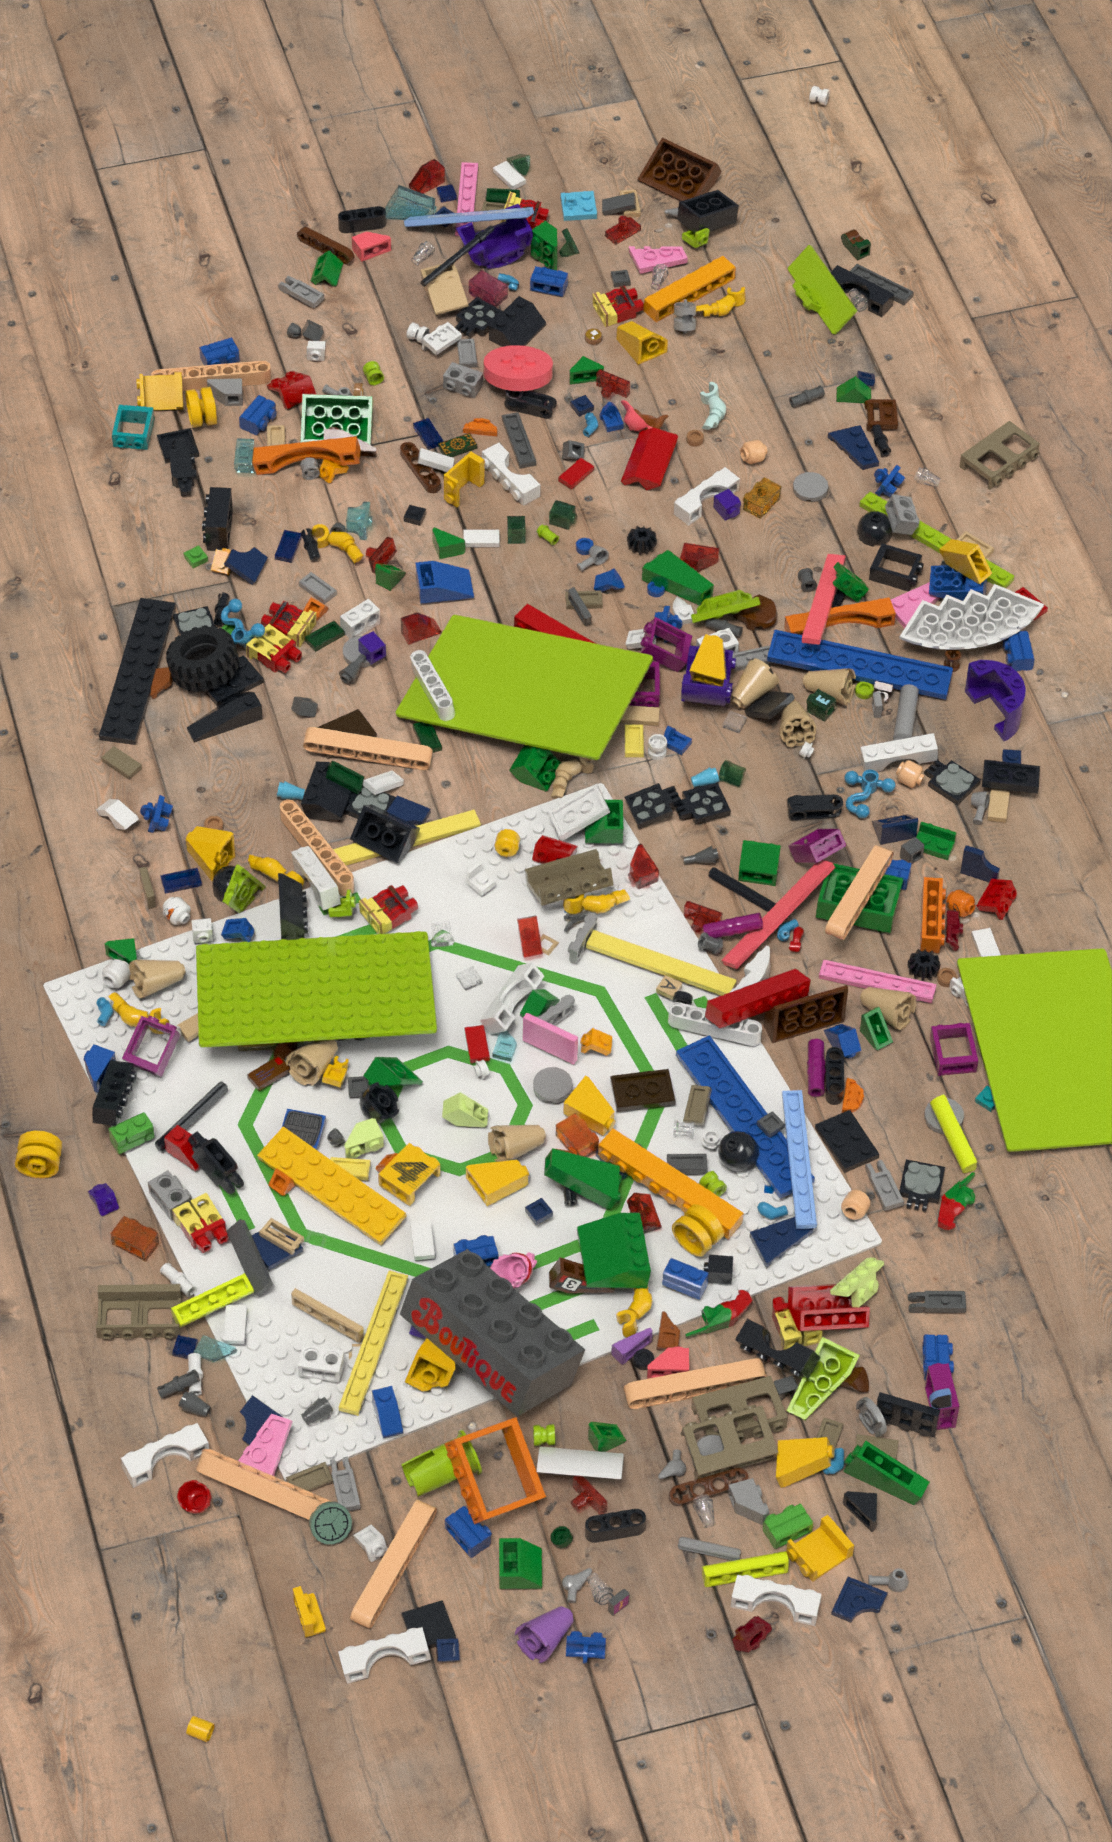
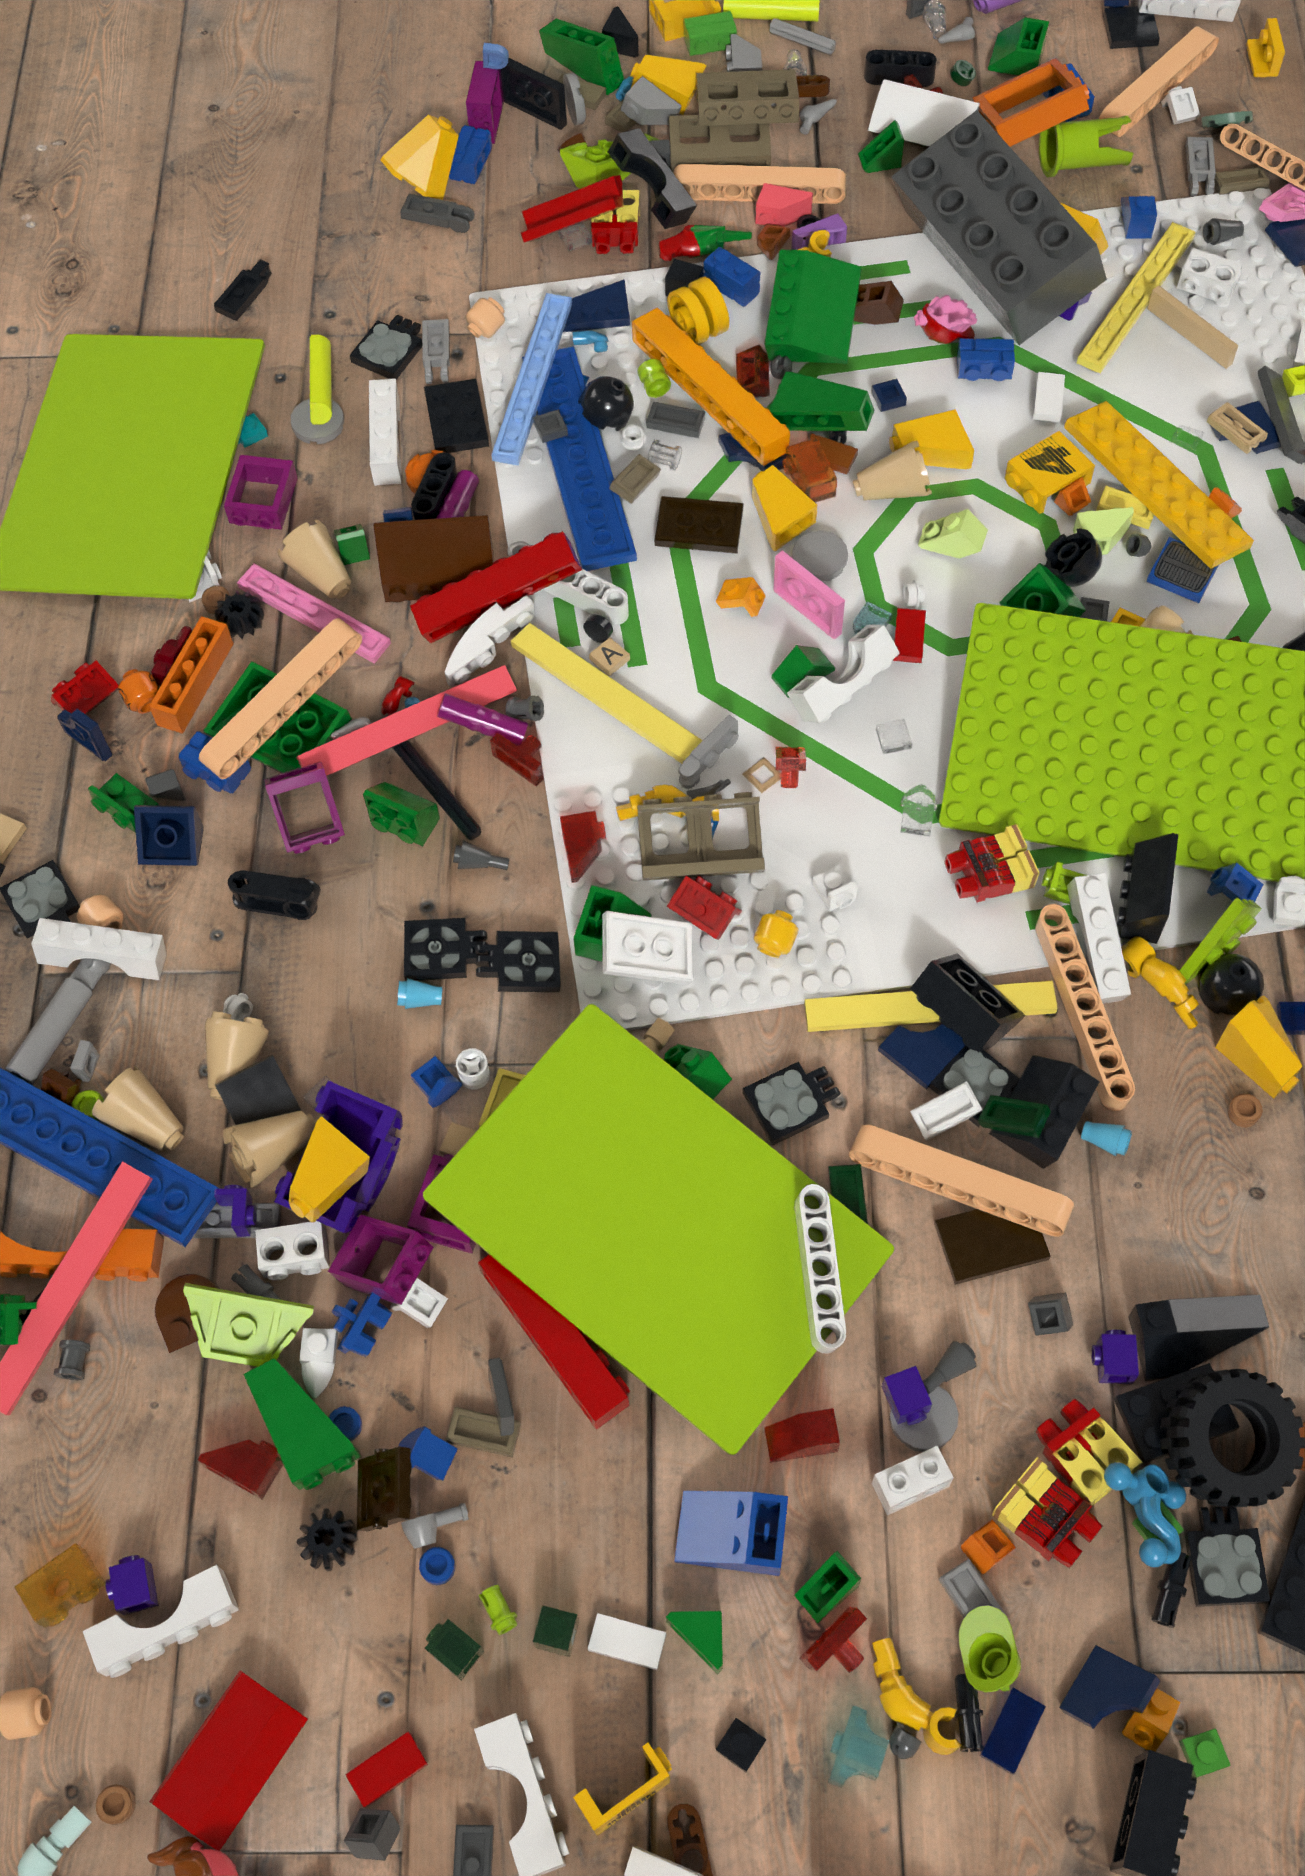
camera: 160 degrees left, 10 degrees up
(266, 691) = (1116, 1357): none -> dark purple brick
(305, 562) = (989, 1649): none -> lime piece
(324, 636) = (984, 1474): dark green tile -> none
(473, 775) = (790, 1101): none -> piece
(560, 1011) = (777, 649): light grey hinge -> none
(621, 558) = (383, 1488): none -> dark brown plate
(732, 773) = (380, 994): clear green tile -> none
(751, 652) = (243, 1212): none -> dark purple bracket
(808, 1426) = (649, 104): none -> light grey slope
(810, 904) = (351, 726): none -> light grey animal
(821, 705) = (174, 1083): clear green brick -> none
(852, 778) = (192, 933): dark azure piece -> none
(860, 1282) = (524, 228): yellowish green bracket -> none
(897, 1122) = (383, 431): none -> white arch
(954, 1202) = (361, 307): animal -> none
(966, 1323) = (424, 156): none -> yellow slope
(980, 801) = (18, 848): light grey bar -> none
(985, 942) = (138, 630): white tile -> none
(1050, 1200) = (243, 291): none -> black hinge

